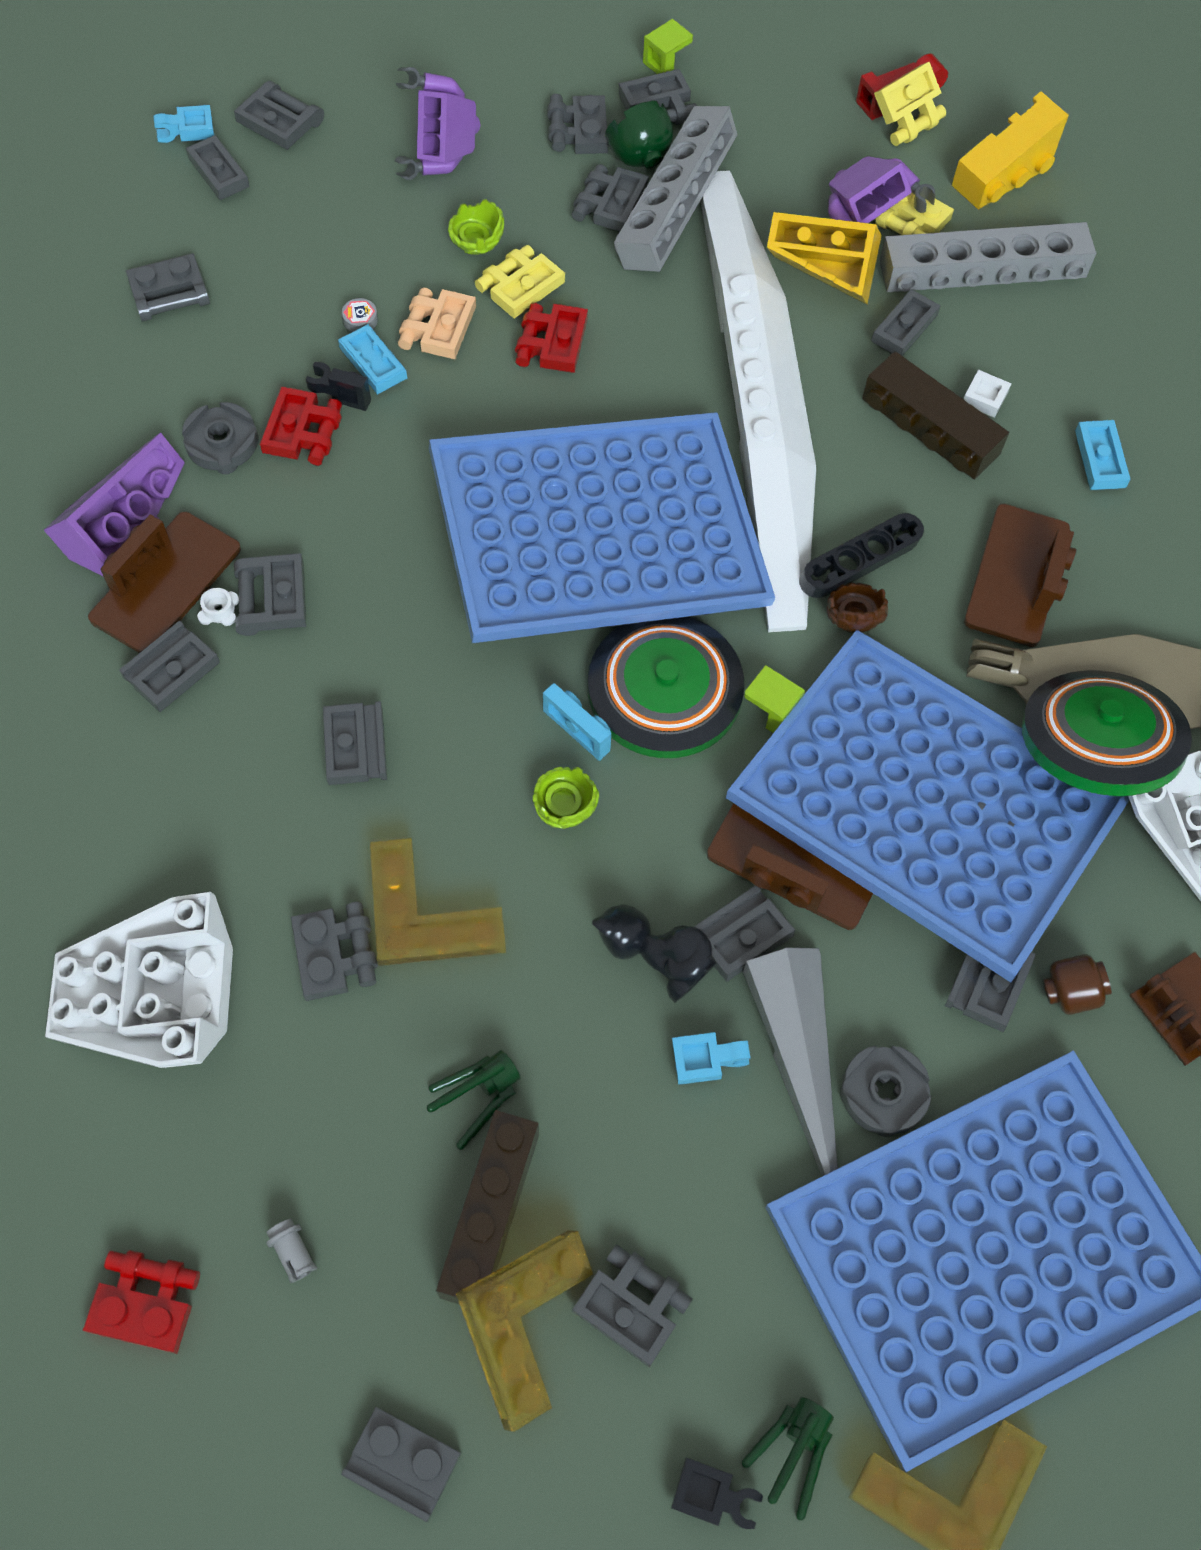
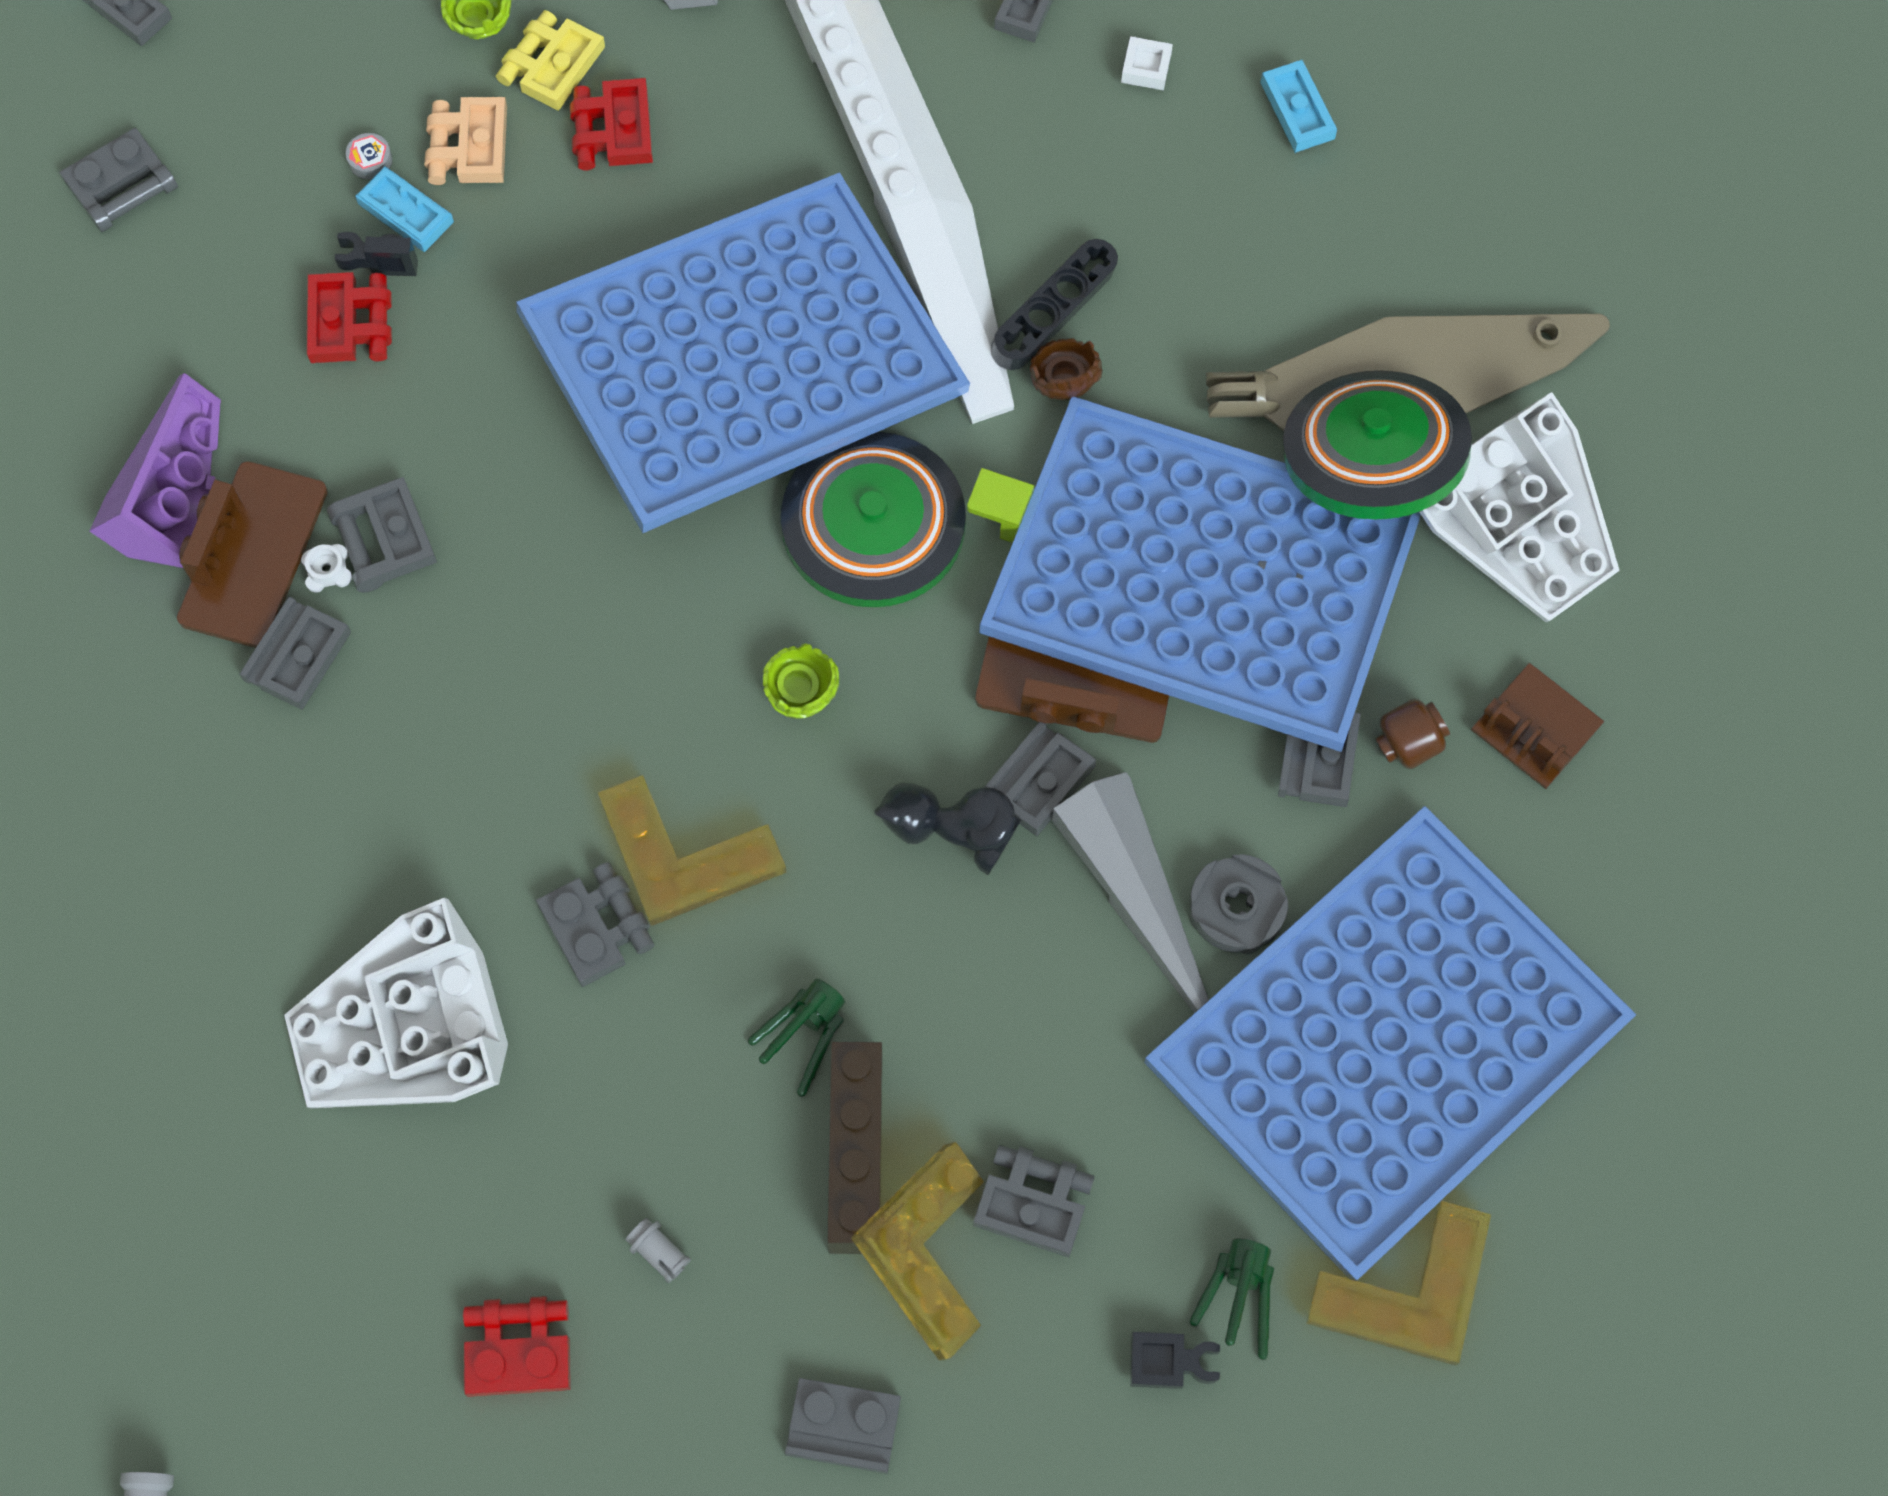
camera: 15 degrees left, 5 degrees up
(226, 453) = (256, 381): dark grey plate -> none
(354, 743) = (541, 684): dark grey plate -> none
(568, 713) = (773, 582): medium azure plate -> none
(701, 1059) = (1033, 926): medium azure plate -> none
(934, 415) = (1093, 107): dark brown brick -> none
(1020, 575) = (1239, 278): reddish brown bracket -> none

